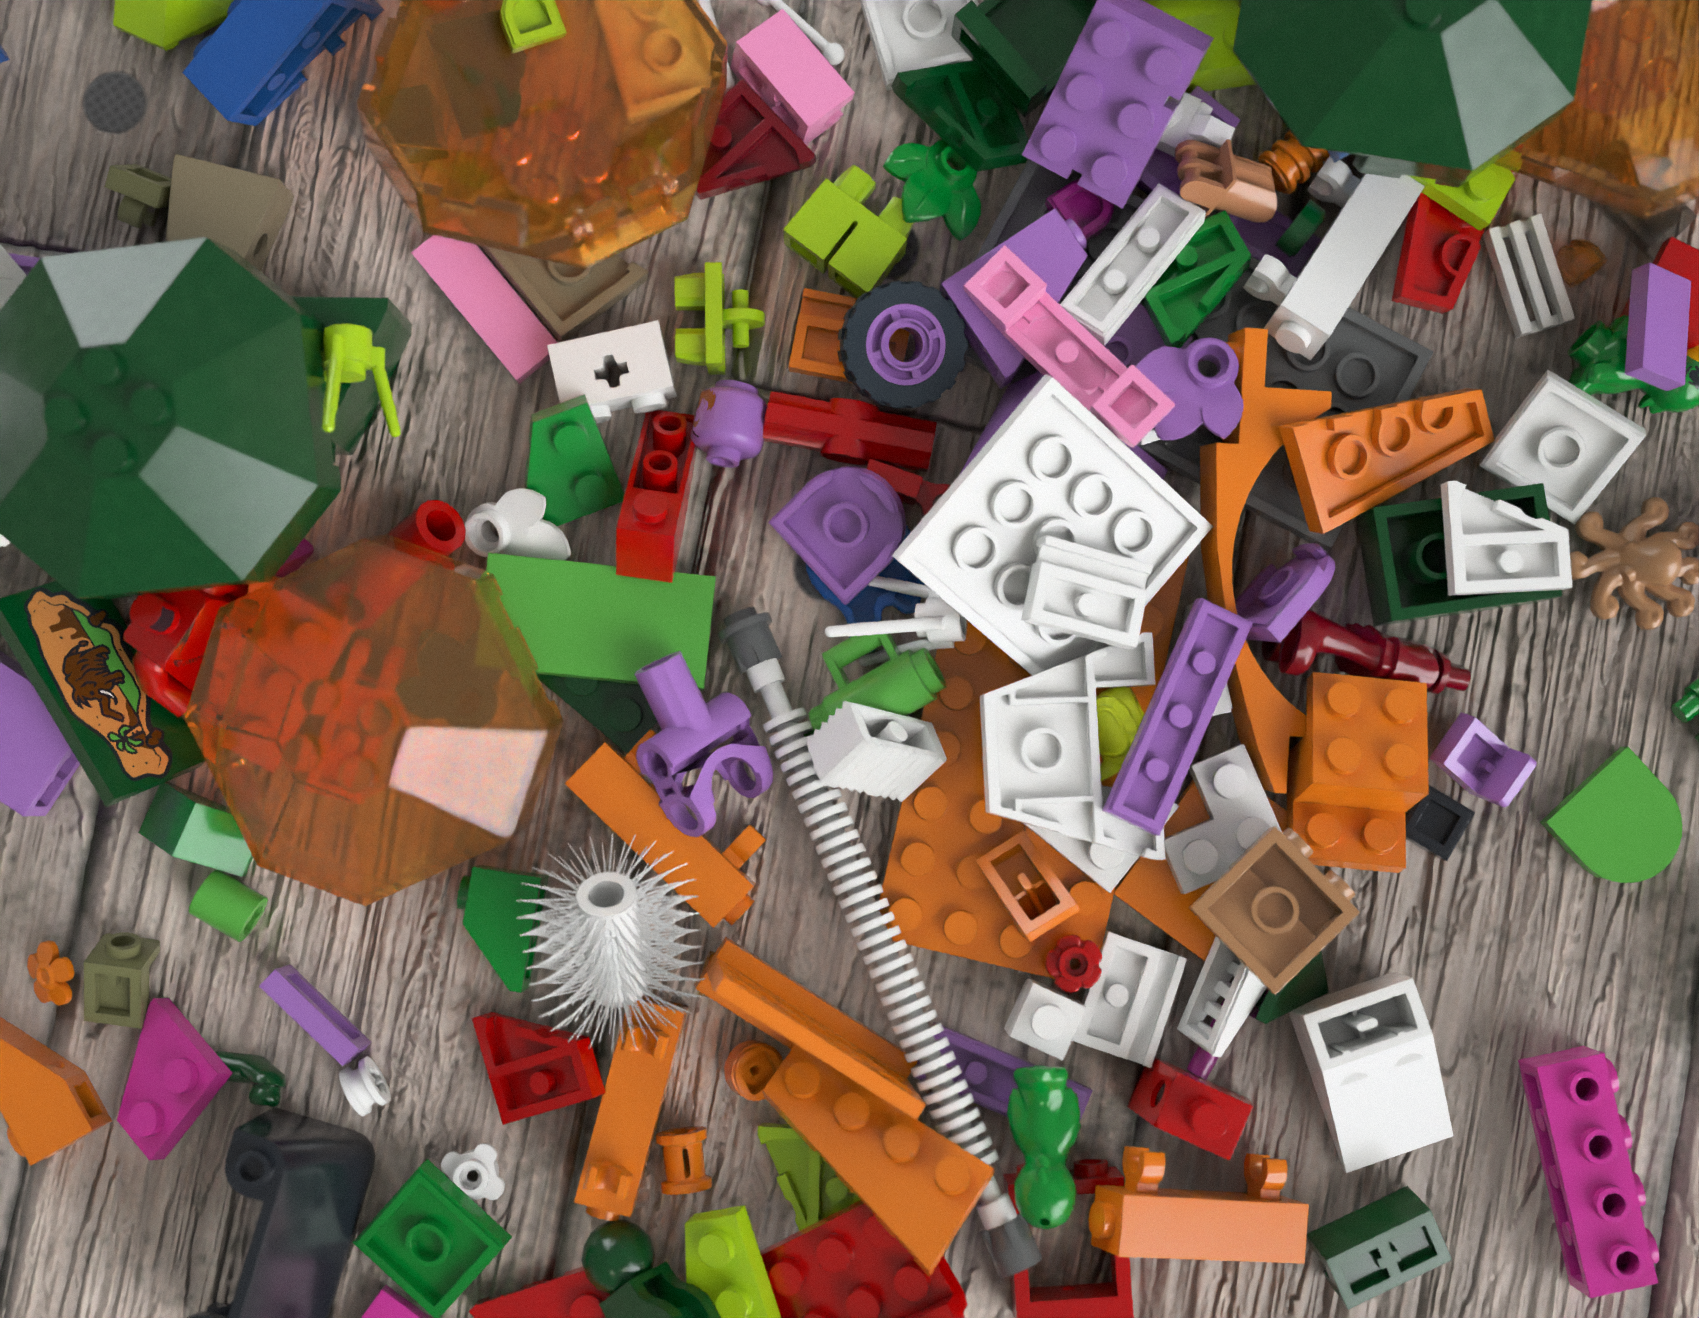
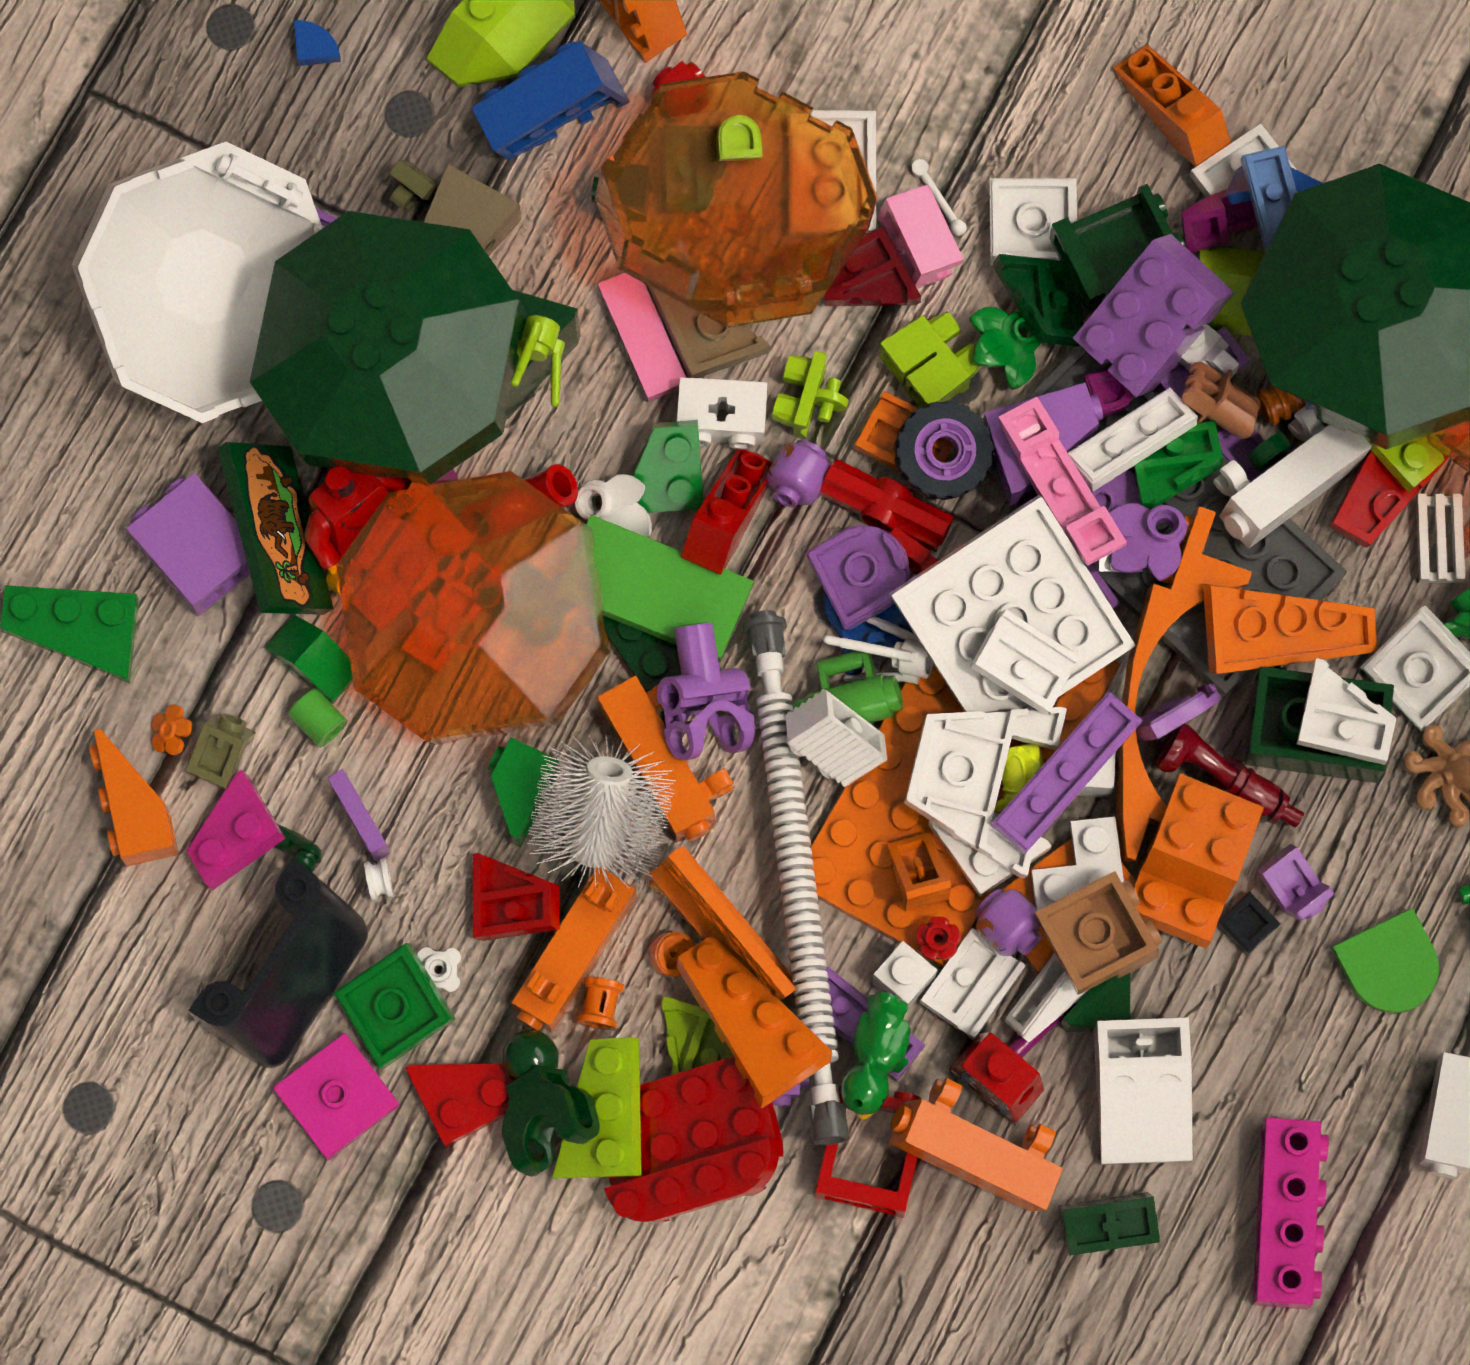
camera: 25 degrees right, 10 degrees down
(1155, 917) = (1008, 922): none -> medium lavender head

